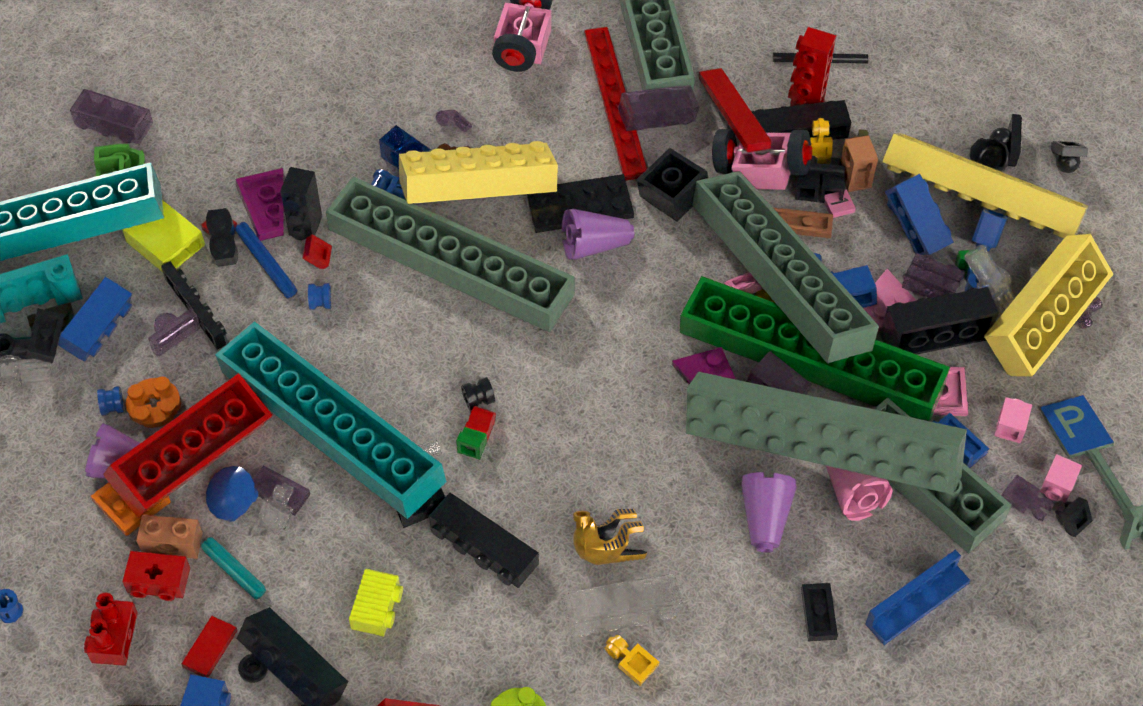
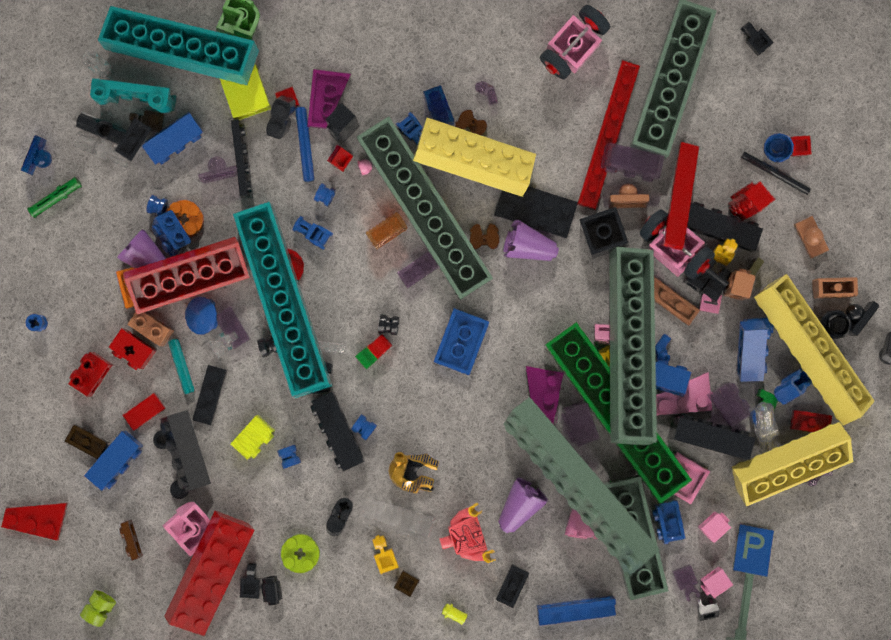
camera: 30 degrees right, 30 degrees up
(140, 417) = (170, 233): none -> blue bracket
(289, 583) = (209, 395): none -> black plate
(327, 341) = (313, 233): none -> blue connector
(339, 486) = (264, 347): none -> black wheel
(351, 247) = (365, 166): none -> bright pink hinge
(416, 296) = (386, 230): none -> clear orange brick
(435, 601) = (287, 452): none -> blue wheel
(479, 322) = (417, 270): none -> clear purple plate
(520, 522) = (363, 427): none -> blue wheel
(544, 654) = (335, 525): none -> black piece
(546, 252) = (490, 239): none -> reddish brown piece
(578, 372) = (461, 341): none -> blue plate
(682, 678) = (406, 583): none -> dark brown plate
(683, 143) = (628, 198): none -> nougat tile
(725, 579) = (467, 536): none -> coral torso
(767, 684) = (454, 614): none -> neon yellow pin
(801, 23) = (781, 144): none -> blue hair
(828, 21) = (802, 146): none -> red plate
(902, 94) = (811, 237): none -> nougat tile
(961, 123) = (835, 287): none -> nougat brick
(1027, 264) = (809, 421): none -> red plate

